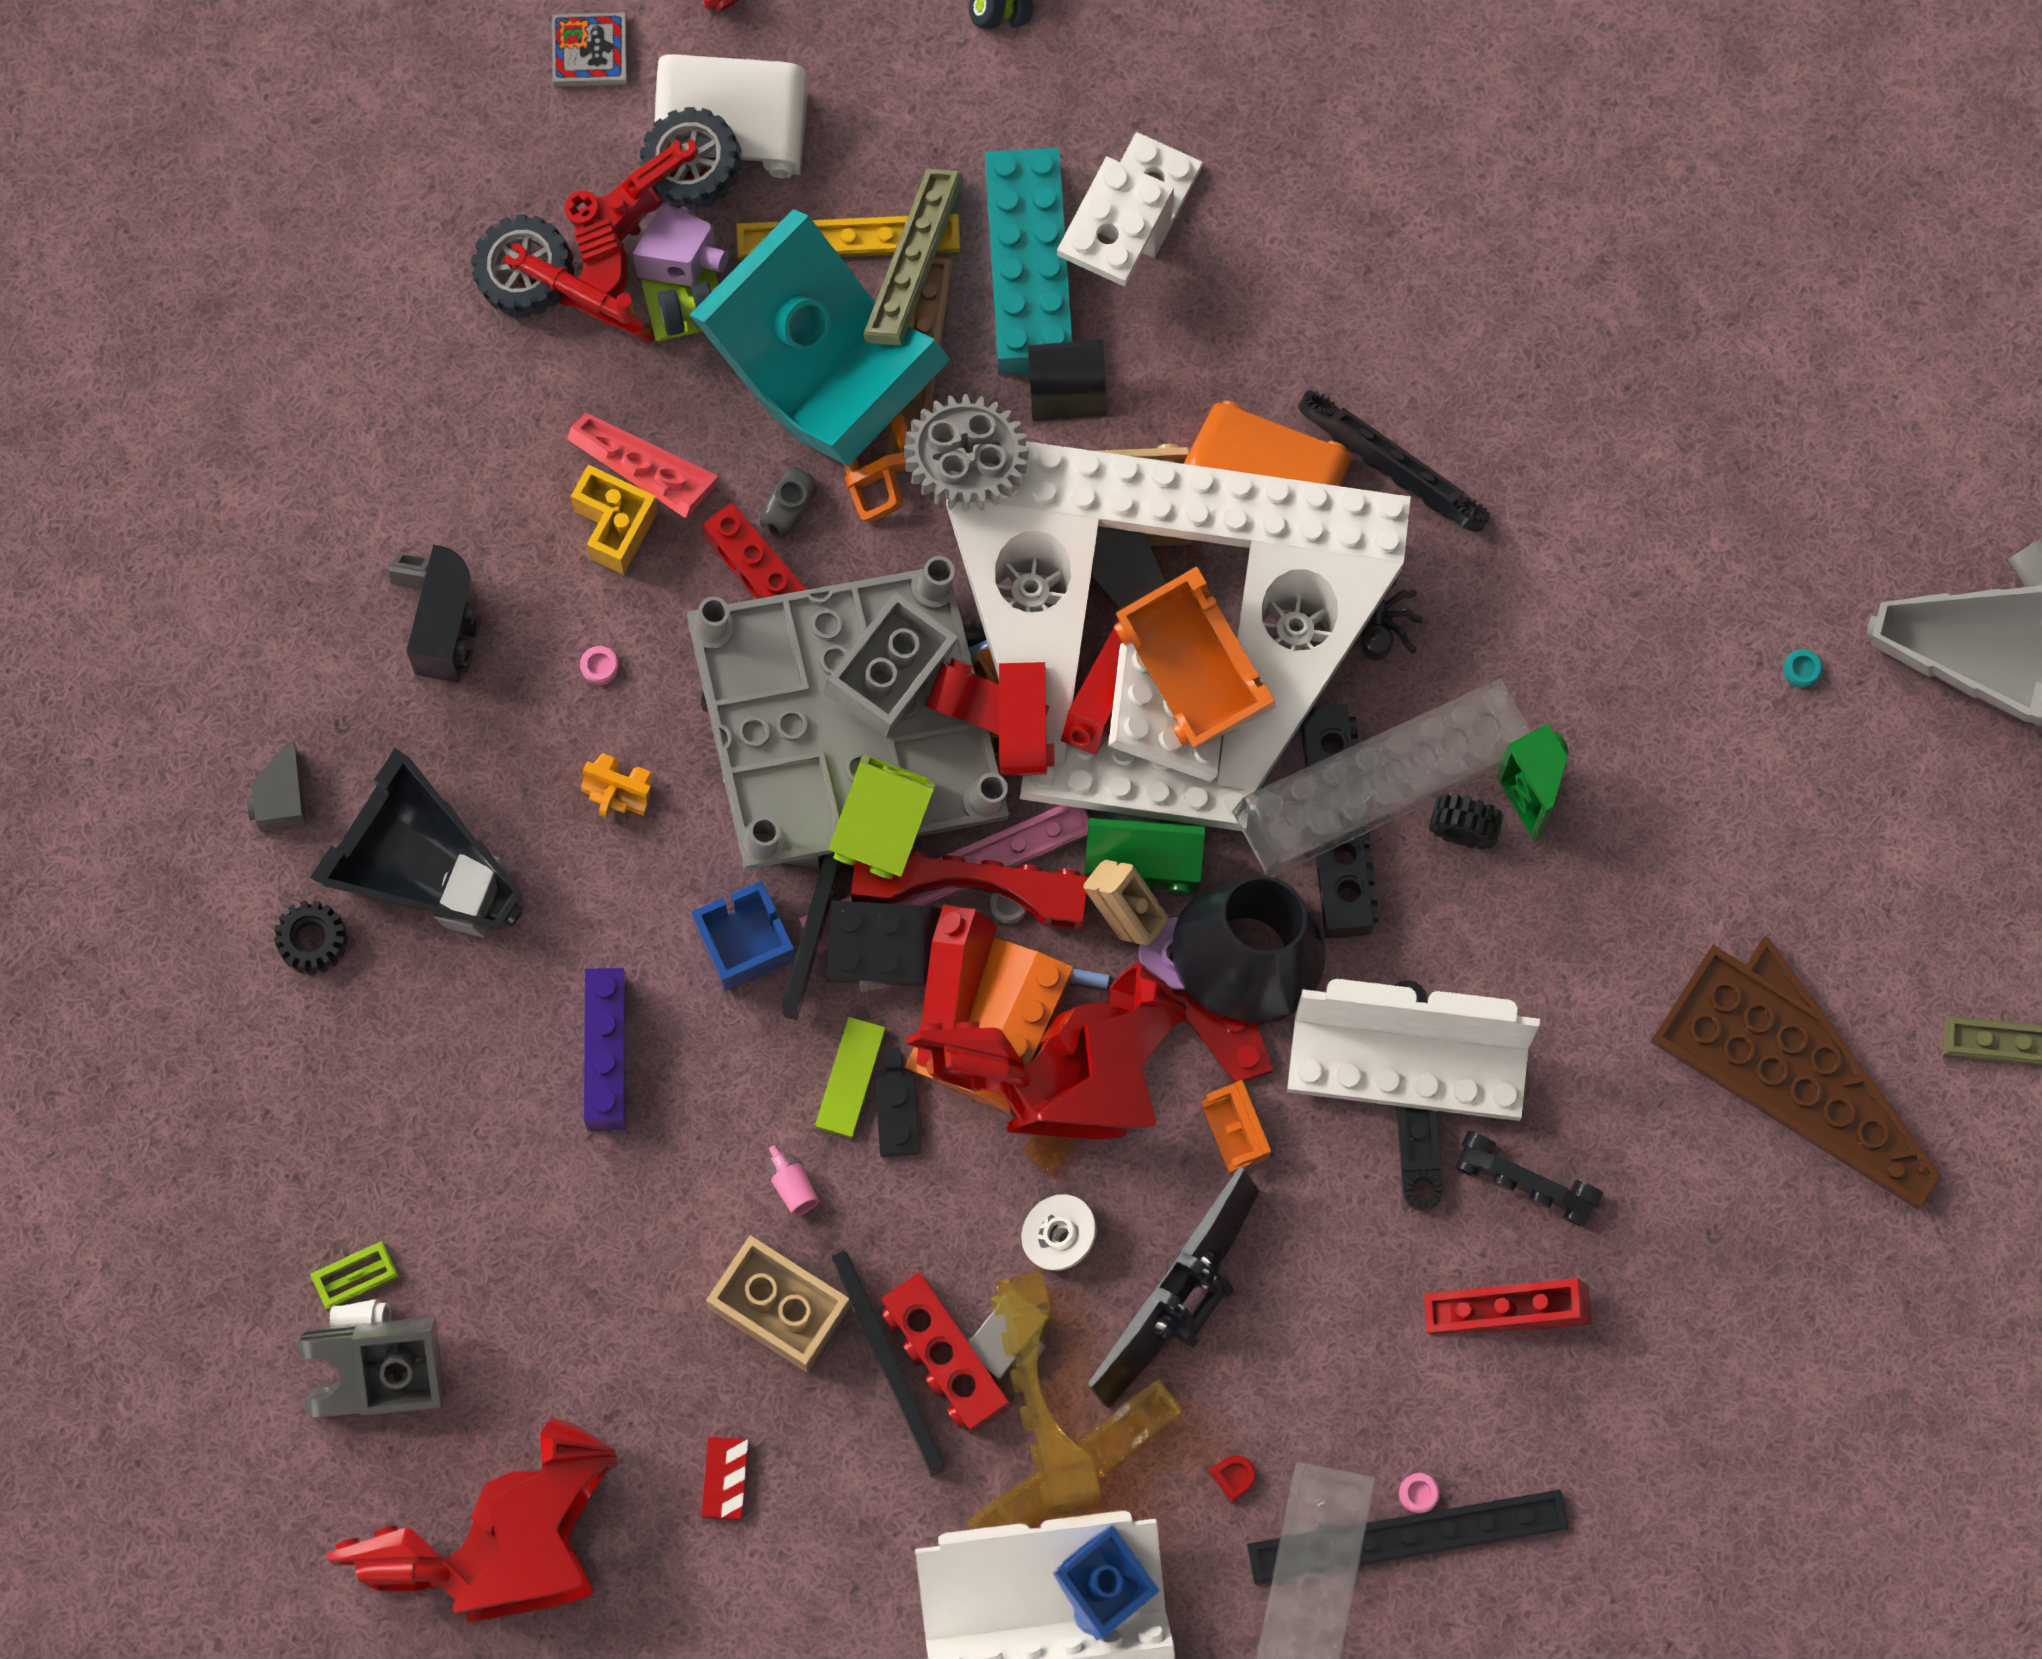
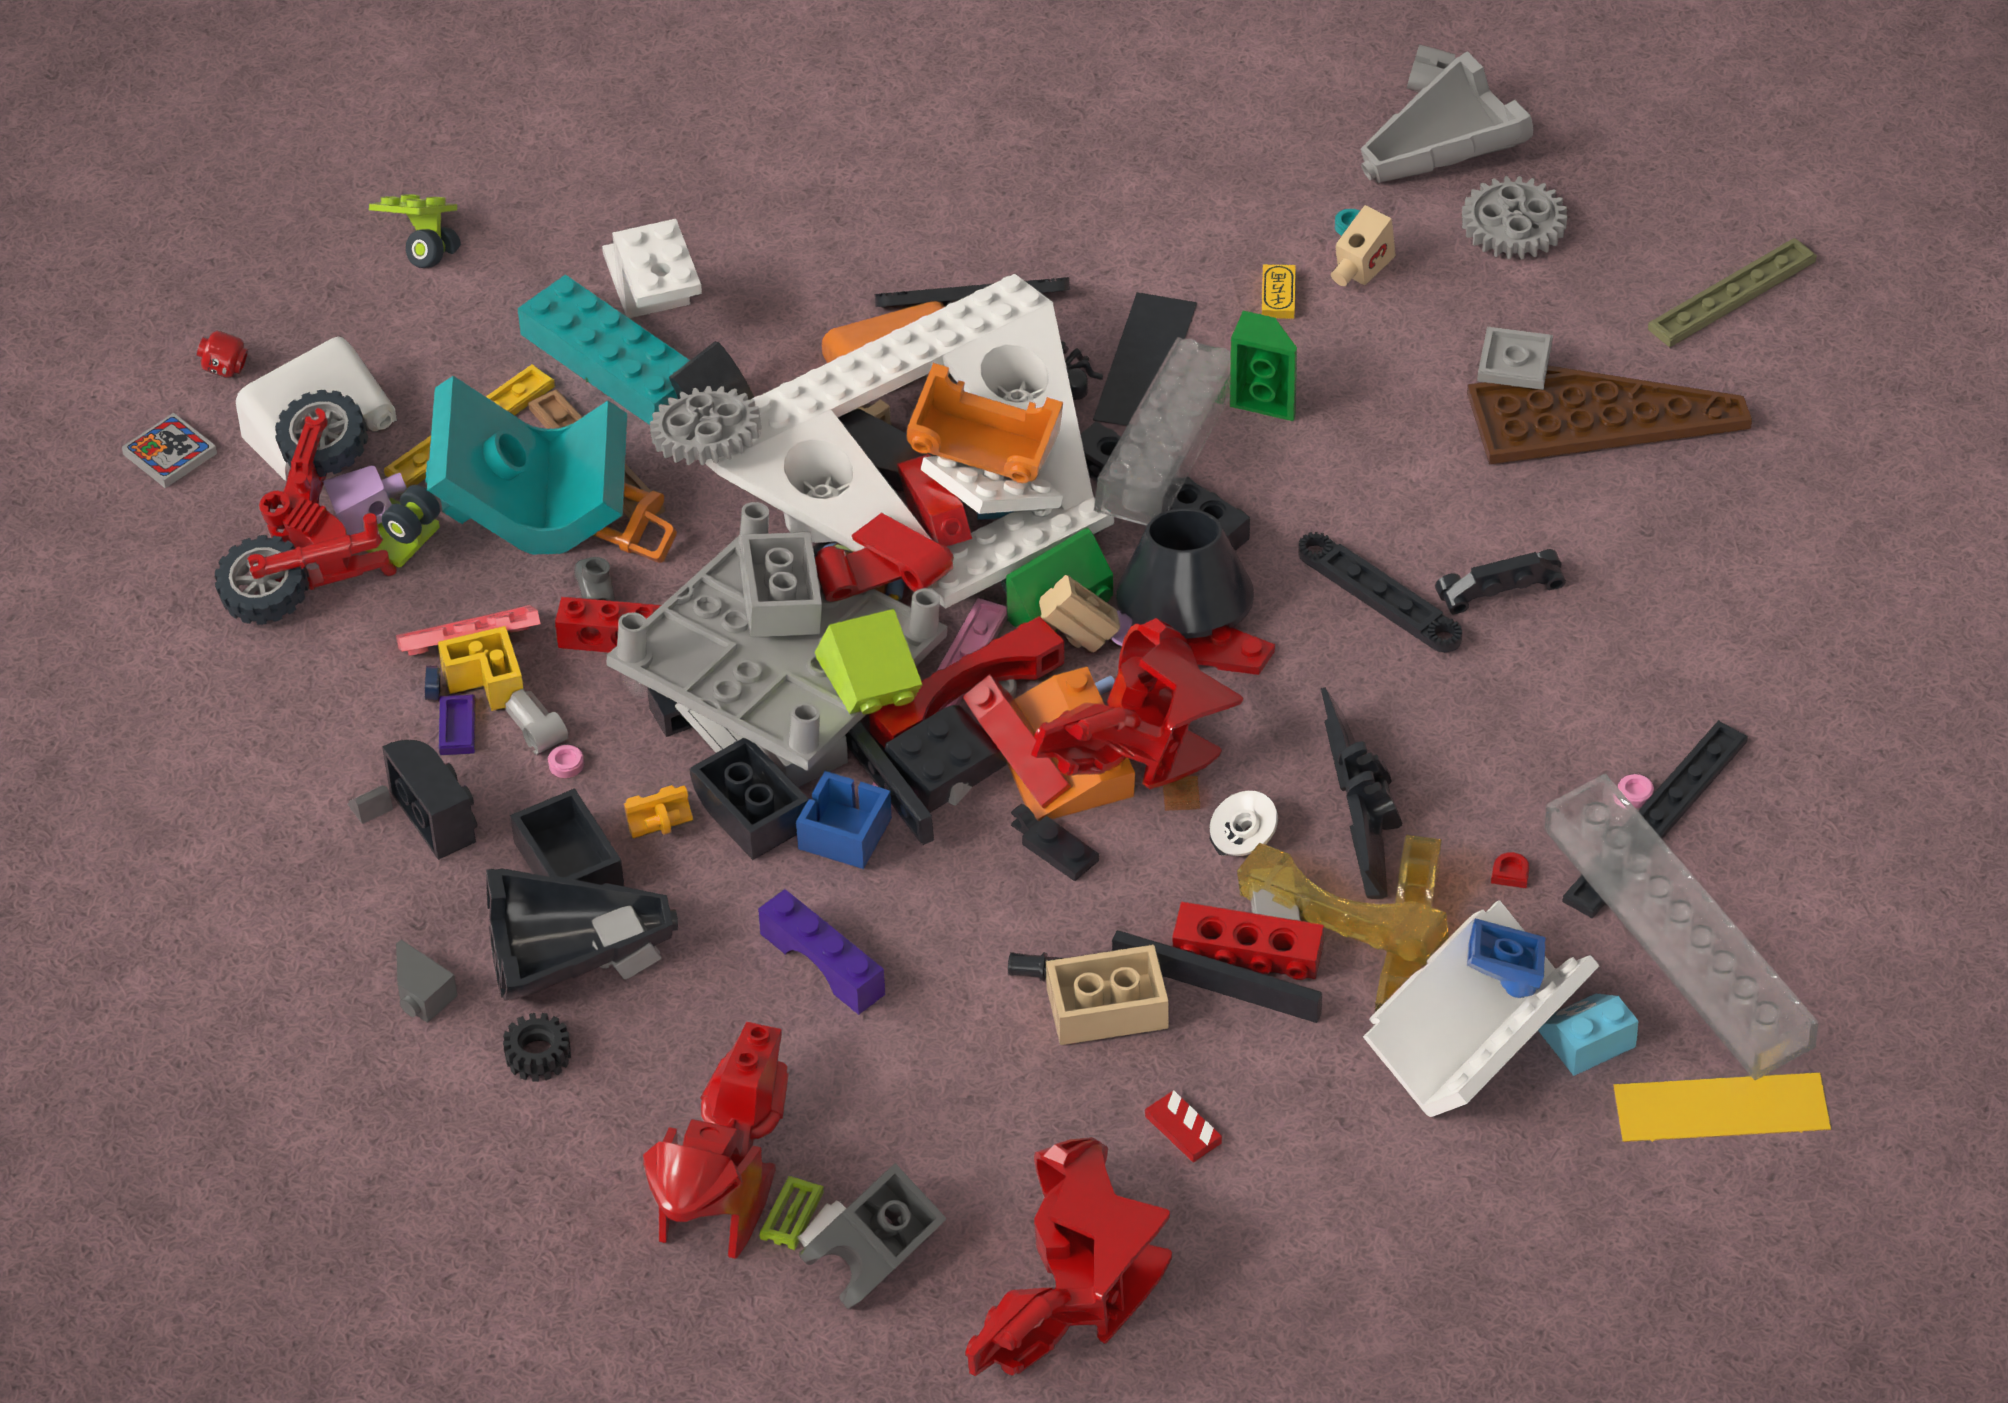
camera: 40 degrees left, 25 degrees down
(388, 1156) = (718, 1164): none -> red piece
(502, 767) = (566, 841): none -> black piece
(551, 549) = (457, 724): none -> dark purple tile
(562, 492) = (432, 683): none -> dark blue tile
(607, 613) = (538, 726): none -> light grey piece
(691, 844) = (748, 797): none -> black brick
(766, 1222) = (1029, 965): none -> black axle
(791, 1181) = (1033, 931): bright pink piece -> none
(850, 1078) = (1004, 852): lime tile -> none
(913, 257) = (533, 391): olive tile -> none
(1236, 1127) = (1288, 687): orange hinge -> none
(1399, 1052) = (1350, 545): white piece -> none
(1466, 821) = (1242, 427): black tyre -> none
(1491, 648) = (1144, 344): none -> black window
(1509, 1307) = (1575, 648): red slope -> none
(1661, 689) = (1278, 291): none -> yellow tile
(1779, 955) = (1515, 358): none -> light grey tile
(1782, 715) = (1364, 247): none -> tan torso
(1981, 791) = (1514, 217): none -> light grey gear

